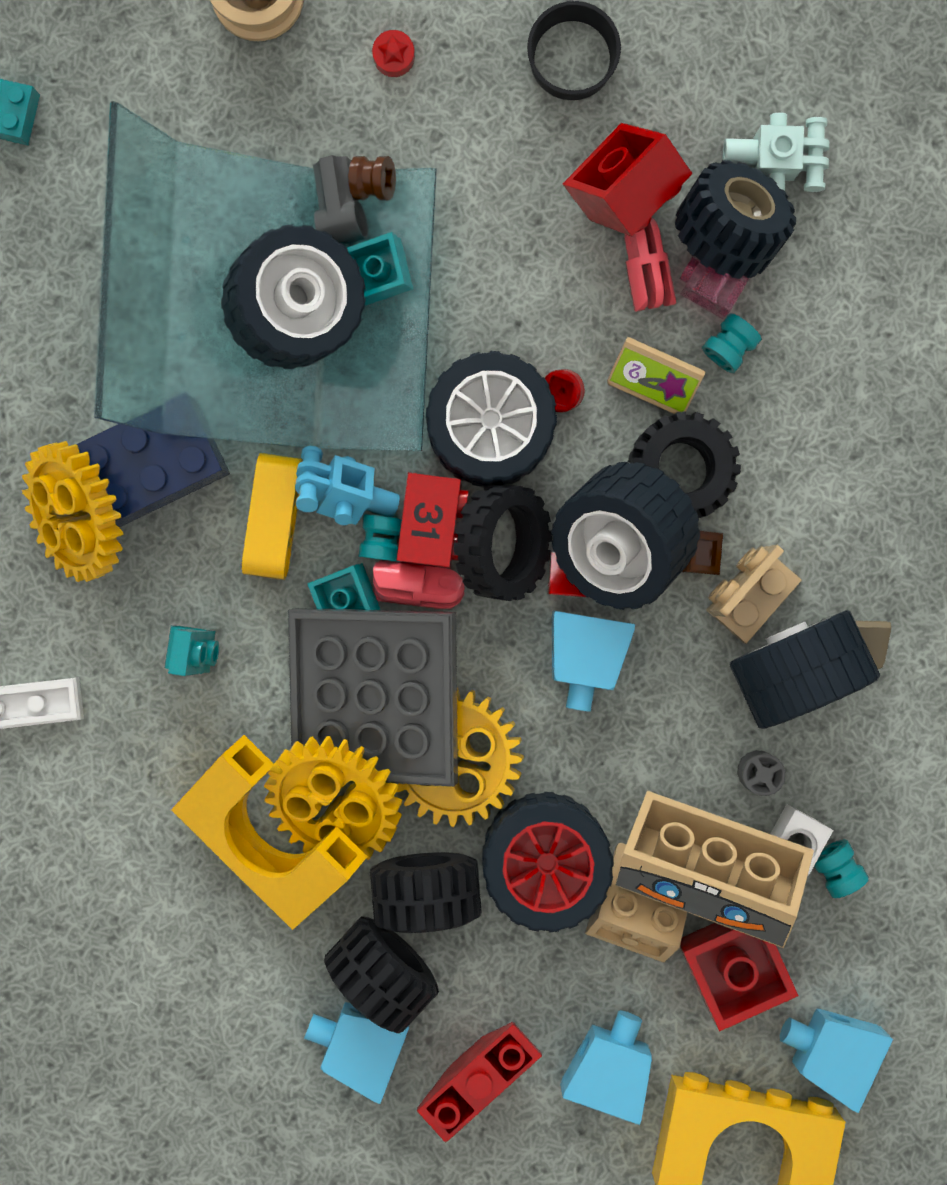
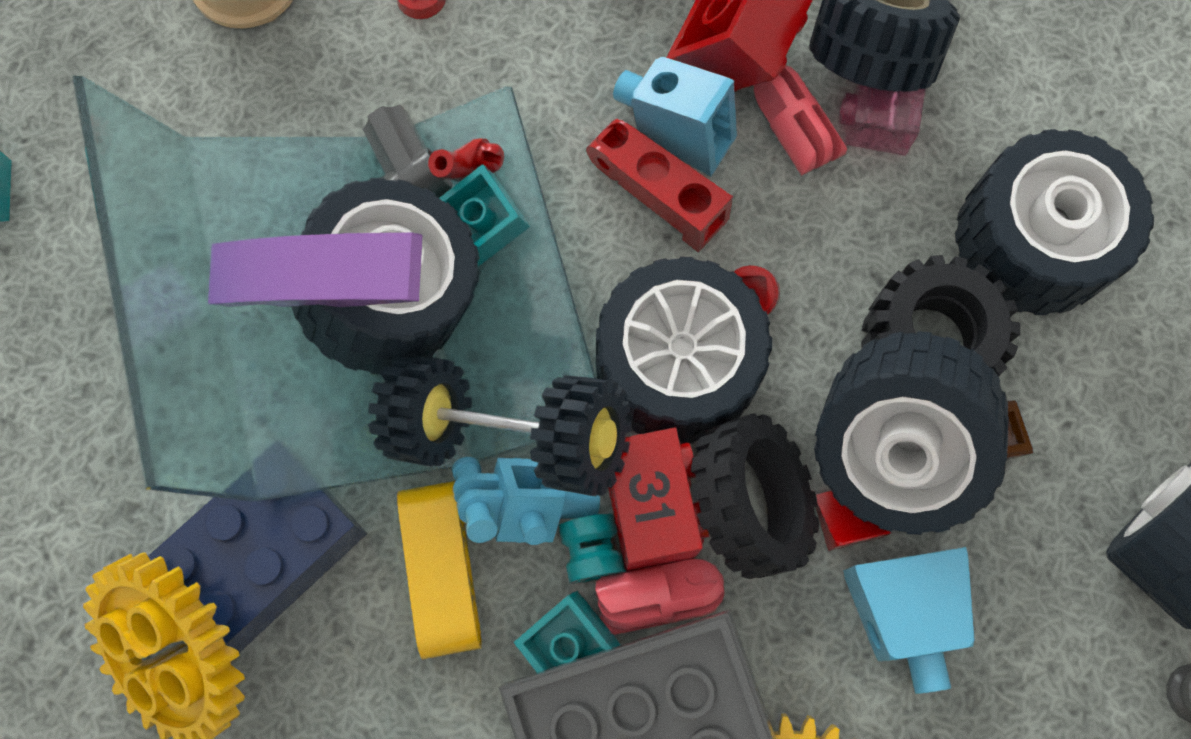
camera: 20 degrees left, 15 degrees down
(241, 293) = (317, 270): none -> medium lavender slope
(372, 178) = (438, 117): reddish brown wheel -> none
(382, 222) = (466, 159): none -> red arm
(387, 464) = (576, 433): none -> black axle
(525, 282) = (662, 182): none -> red leg
(558, 231) = (682, 110): none -> medium azure torso
(655, 376) = (858, 238): slope -> none
(730, 345) = (932, 171): teal wheel -> none
(753, 593) = (1088, 456): tan bracket -> none
(801, 413) = (1056, 220): none -> black wheel

